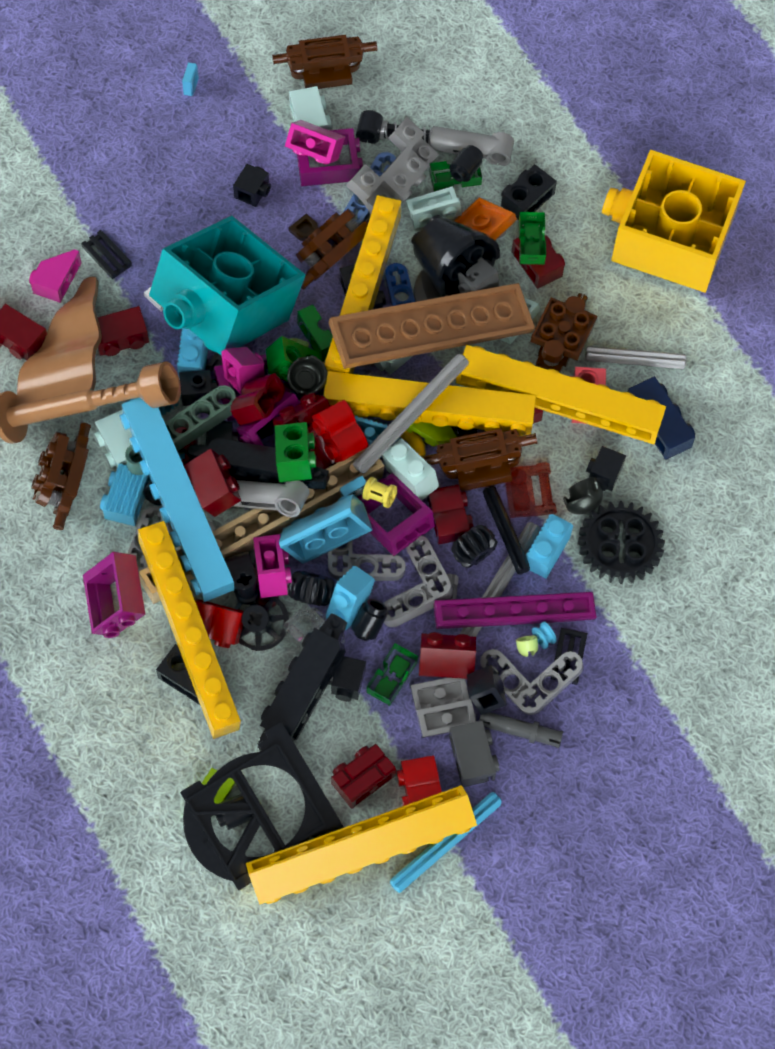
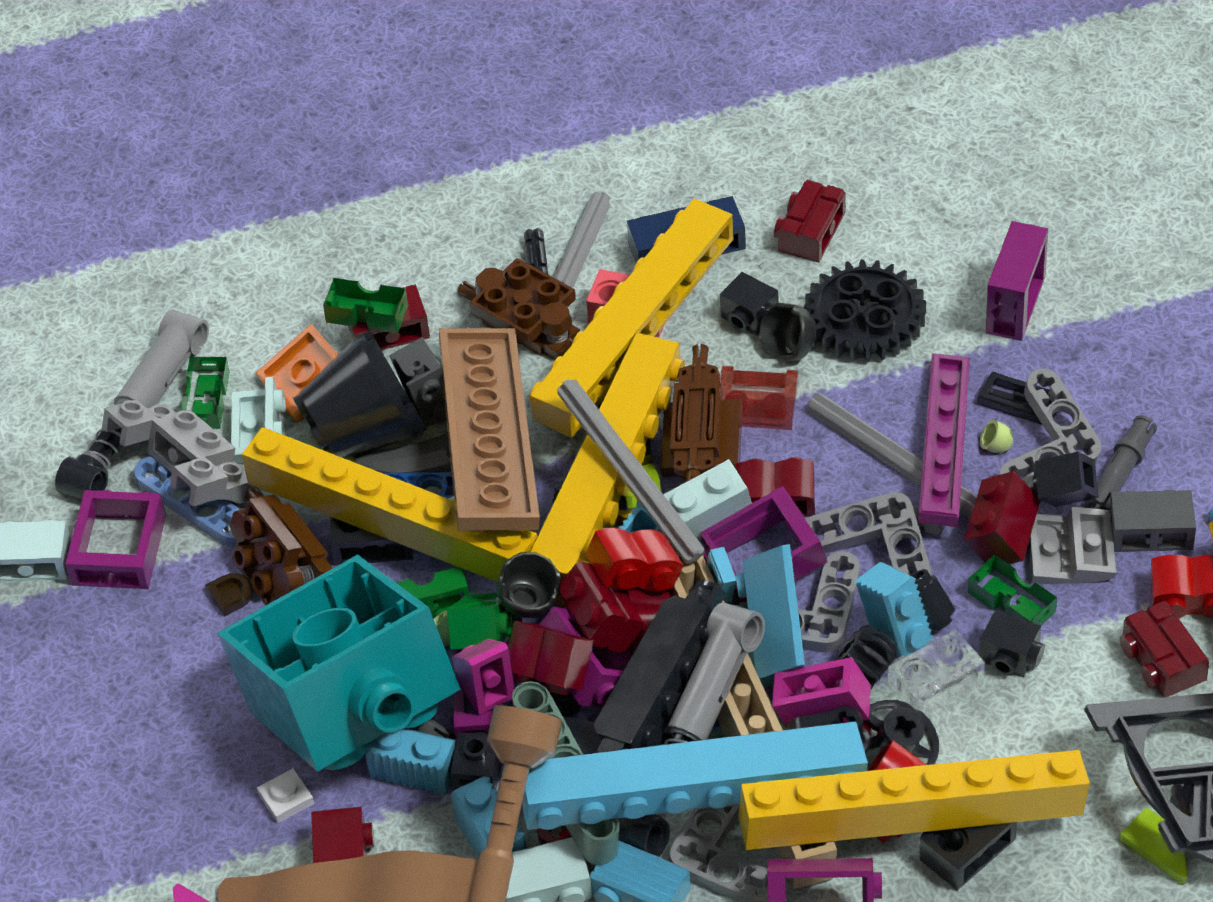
camera: 70 degrees left, 15 degrees down
(95, 241) = (179, 856): black tile -> none
(213, 482) = (684, 715): dark red brick -> none
(252, 185) = (130, 642): black brick -> none
(293, 452) = (668, 603): green brick -> none
(306, 678) = (1020, 682): black hinge -> none
(314, 141) = (107, 524): dark pink brick -> none
(379, 492) = (739, 538): light yellow bush -> none
(466, 163) = (206, 361): black brick -> none
(474, 546) = (838, 462): black gear -> none
(506, 530) = (818, 426): black axle -> none
(531, 196) = (271, 311): black brick -> none
(544, 634) = (984, 411): medium azure bush -> none
(549, 545) = (855, 384): medium azure brick -> none
(619, 334) = (536, 249): none -> black axle
(663, 631) = (1016, 280): none -> magenta window
(674, 219) = (398, 141): yellow brick -> none
(694, 493) = (810, 220): none -> dark red brick

